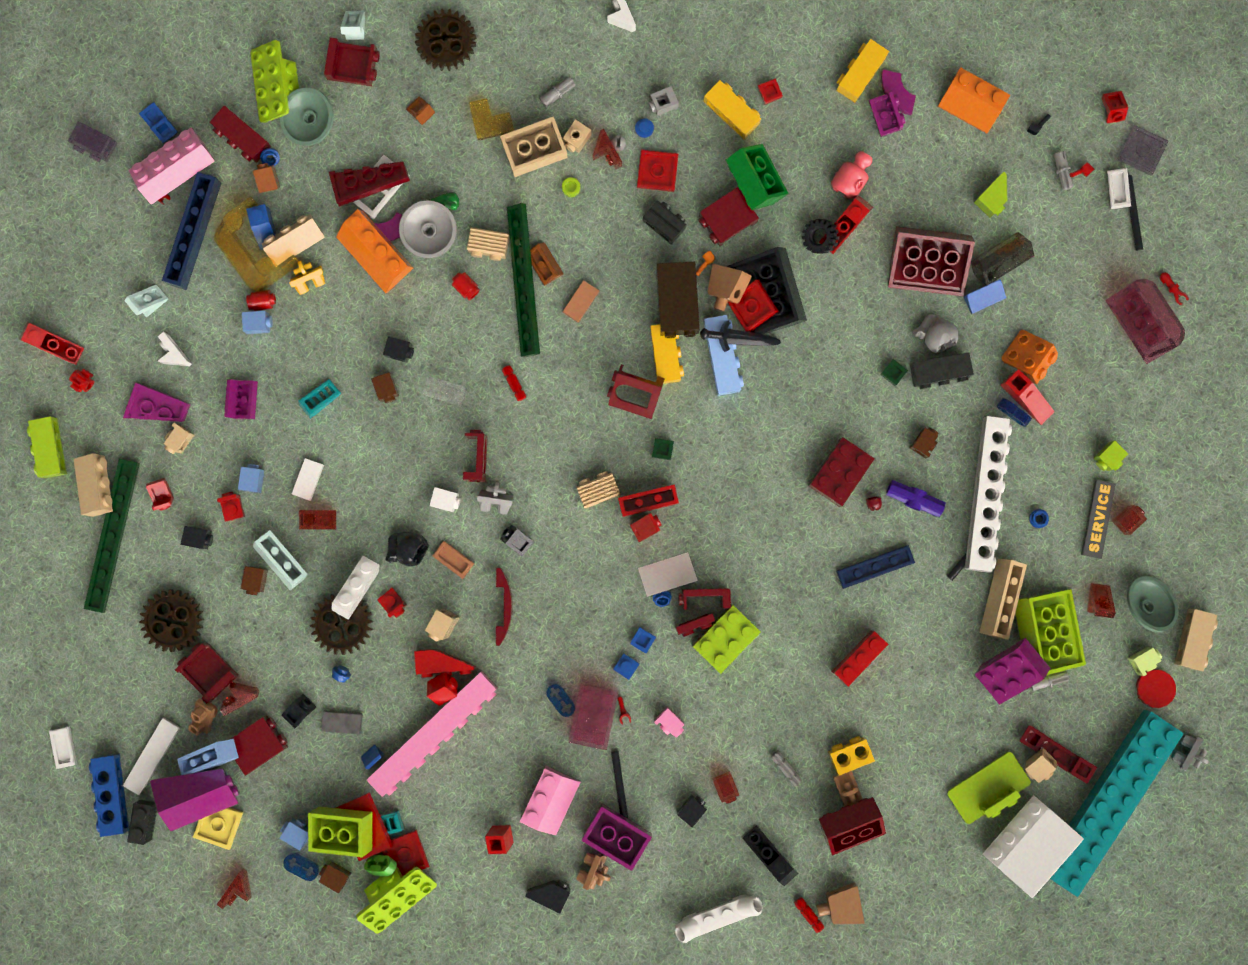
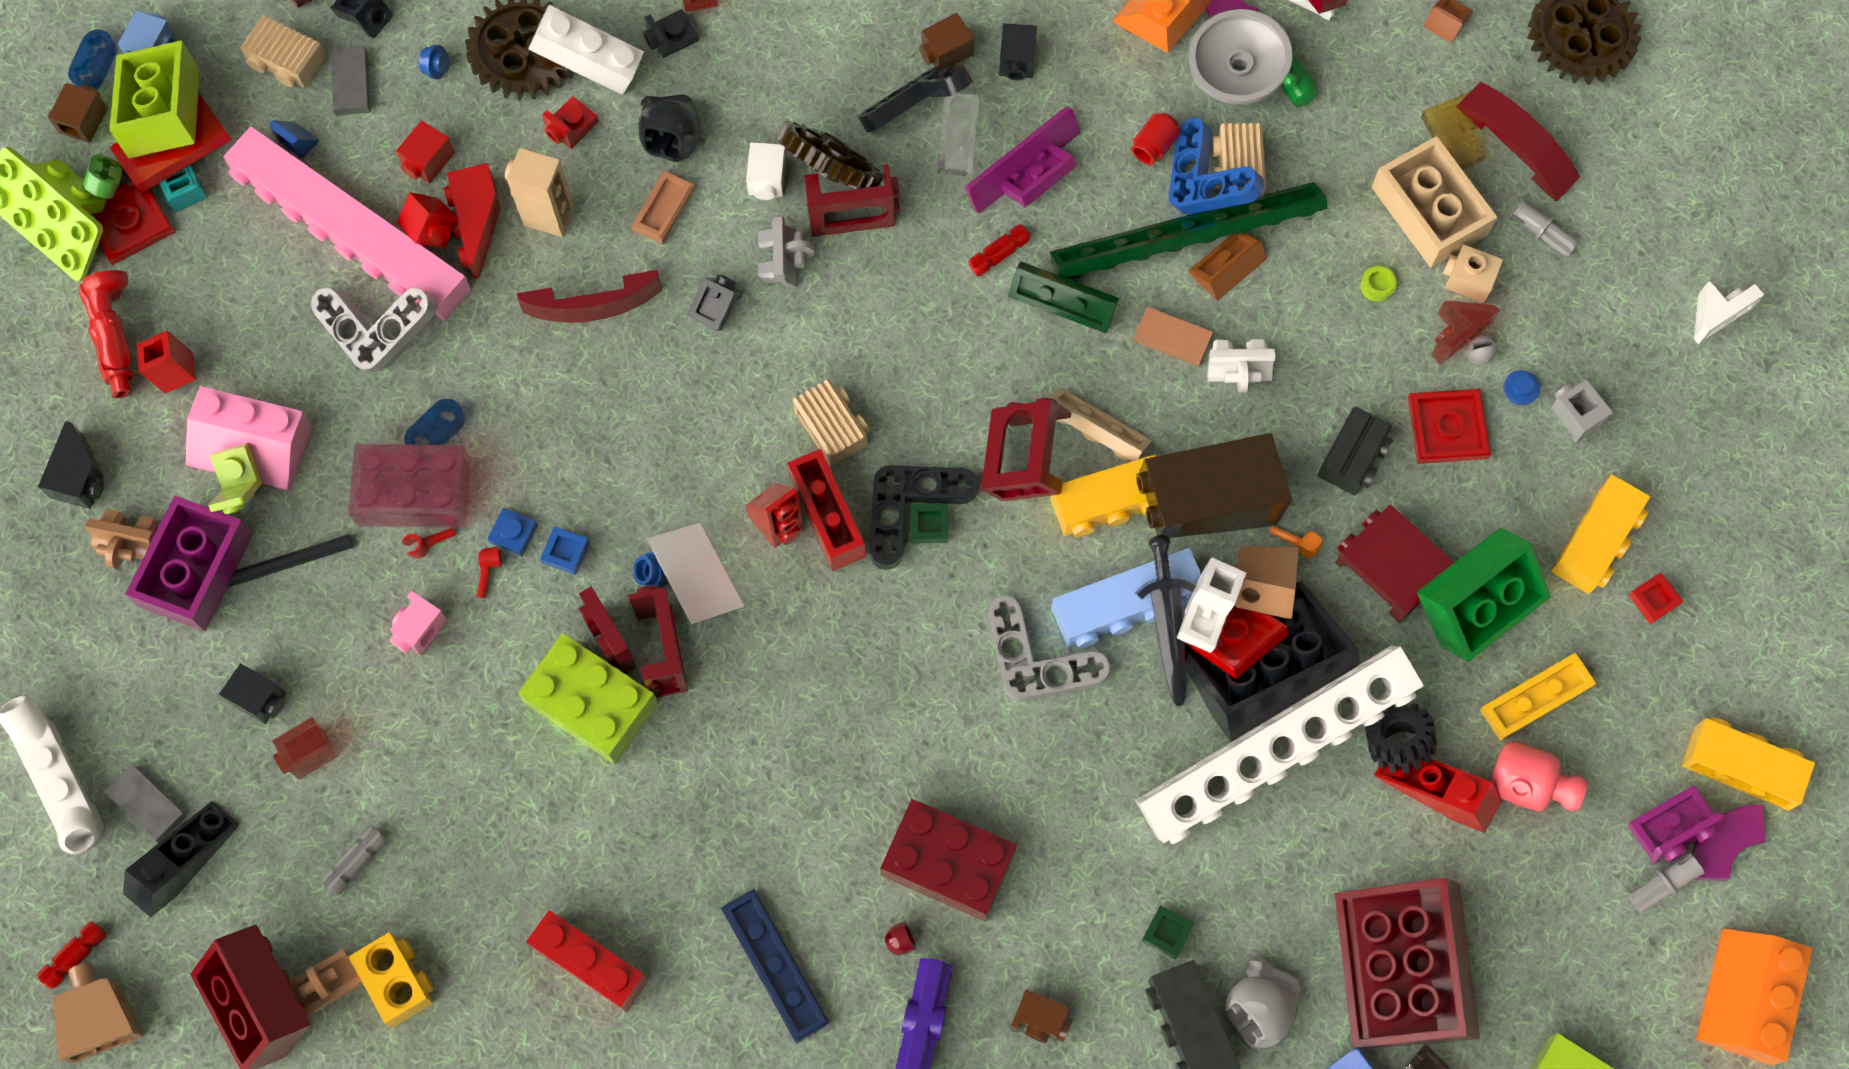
camera: 80 degrees right, 15 degrees down
(319, 757) = (283, 52): none -> tan brick
(347, 539) = (670, 33): none -> black bracket
(397, 686) = (424, 152): none -> red brick
(409, 403) = (935, 82): none -> black beam
(450, 464) = (828, 156): none -> dark brown gear
(470, 356) = (1029, 166): none -> magenta bracket
(474, 870) = (107, 328): none -> red piece
(500, 267) = (1200, 182): none -> blue beam
(502, 730) = (368, 336): none -> light grey beam
(503, 91) = (1523, 137): none -> dark red slope
(549, 354) = (1063, 297): none -> dark green plate
(576, 807) = (237, 478): none -> lime bracket
(607, 271) = (1240, 365): none -> white hips
(625, 350) = (1101, 427): none -> tan plate
(639, 680) = (488, 559): none -> red hand
(642, 457) = (907, 492): none -> black beam
(737, 871) = (145, 803): none -> flat silver tile
(740, 316) = (1210, 603): none -> white brick
(745, 415) = (1024, 664): none -> light grey beam
(806, 290) = (1400, 687): none -> white brick
(809, 163) = (1537, 696): none -> yellow plate
(913, 127) = (1666, 882): none -> light grey axle

